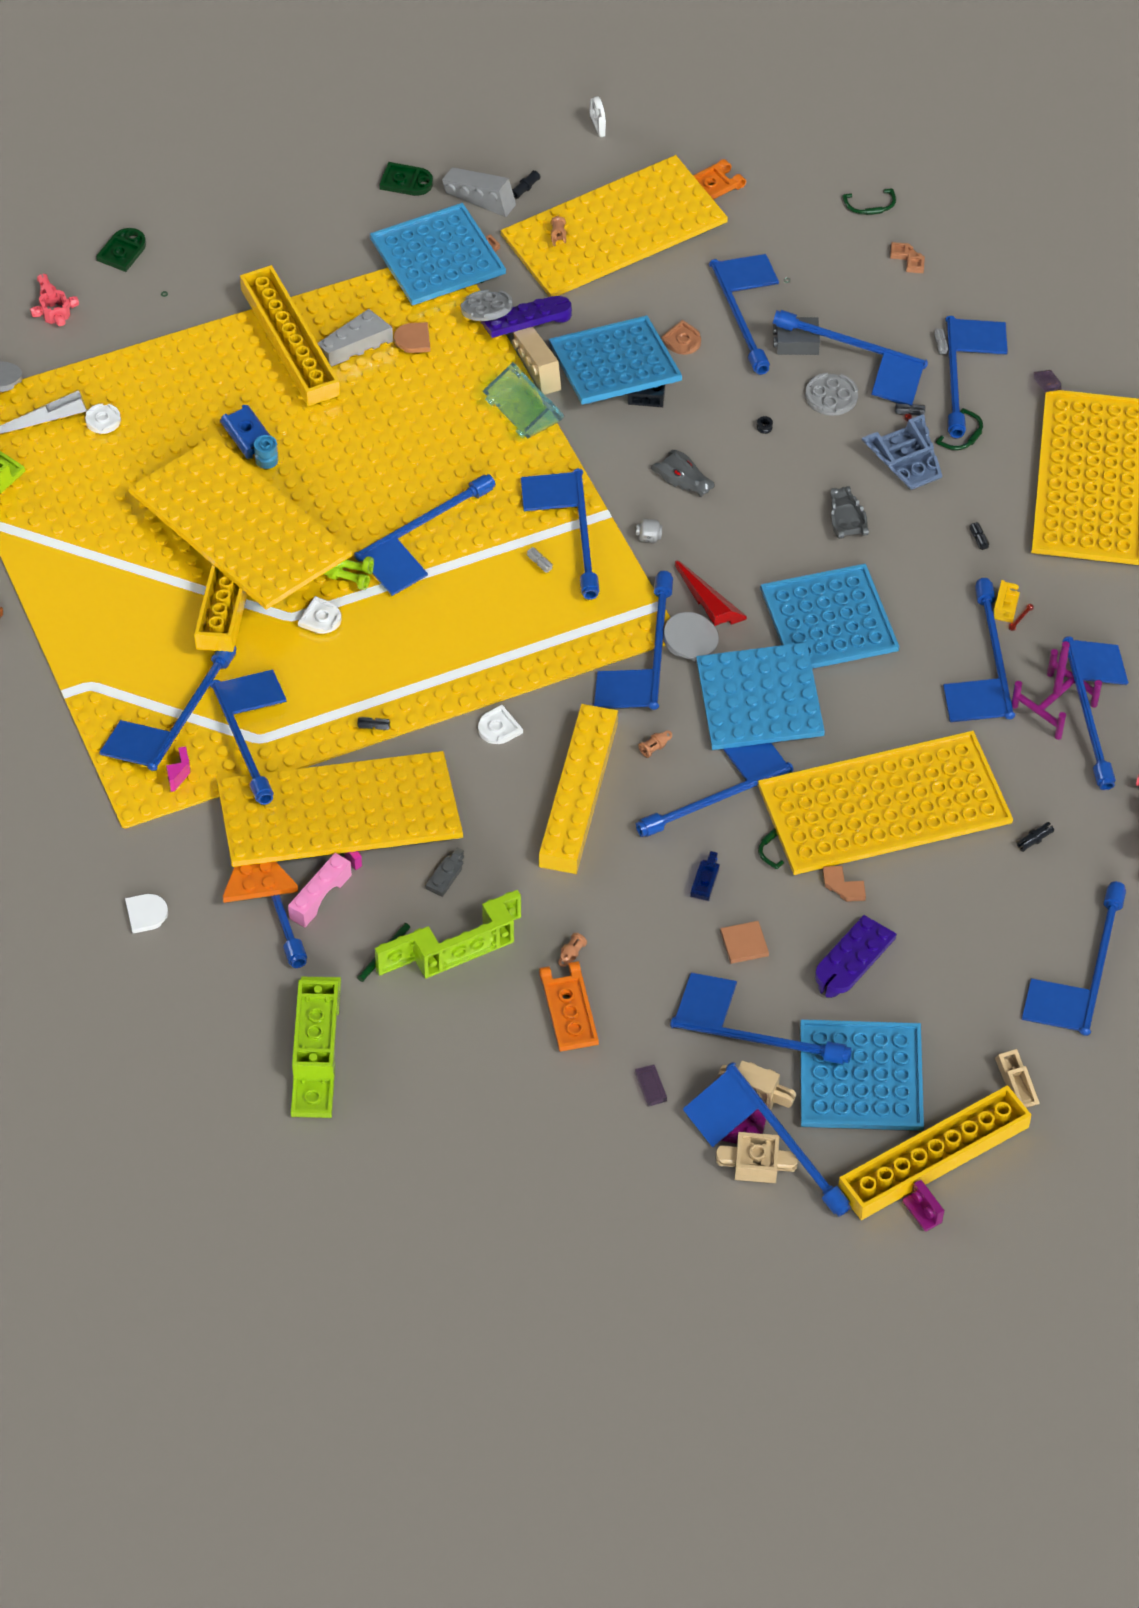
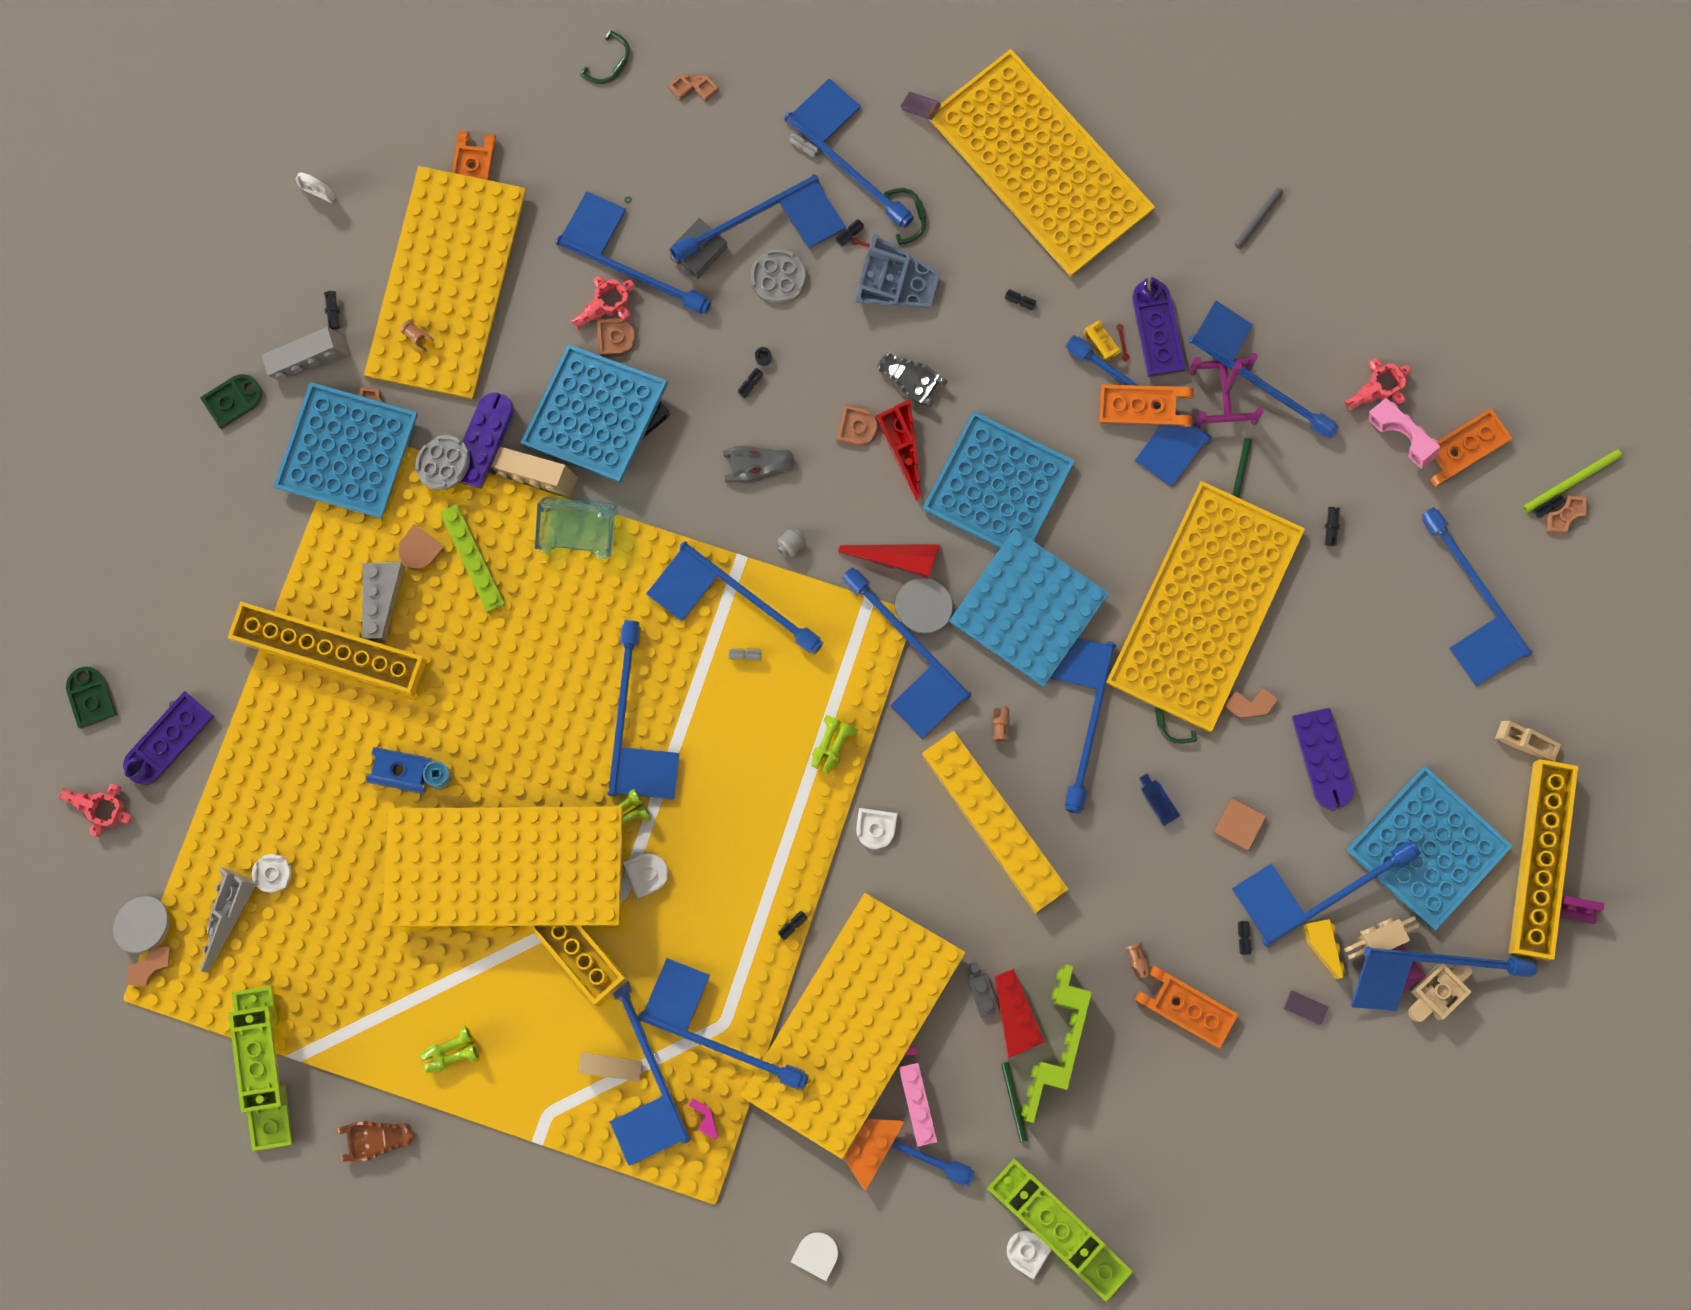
camera: 45 degrees left, 25 degrees up
(65, 590) = (441, 1061): none -> lime piece
(135, 304) = (166, 740): none -> dark purple plate
(159, 688) = (610, 1067): none -> tan slope
(277, 1041) = (1027, 1252): none -> white tile
(438, 369) = (472, 558): none -> lime plate
(448, 902) = (1017, 1019): none -> red wedge
(517, 655) = (832, 755): none -> lime piece
(658, 1009) = (1244, 934): none -> black piece
(693, 313) = (598, 308): none -> coral piece
(713, 1054) = (1322, 942): none -> yellow slope
(732, 431) = (752, 380): none -> black piece
(776, 511) = (856, 426): none -> nougat tile
(798, 534) = (899, 433): none -> red wedge
(982, 650) = (1135, 405): none -> orange hinge
(1015, 753) = (1242, 467): none -> dark green bar
(1057, 622) = (1157, 328): none -> dark purple plate

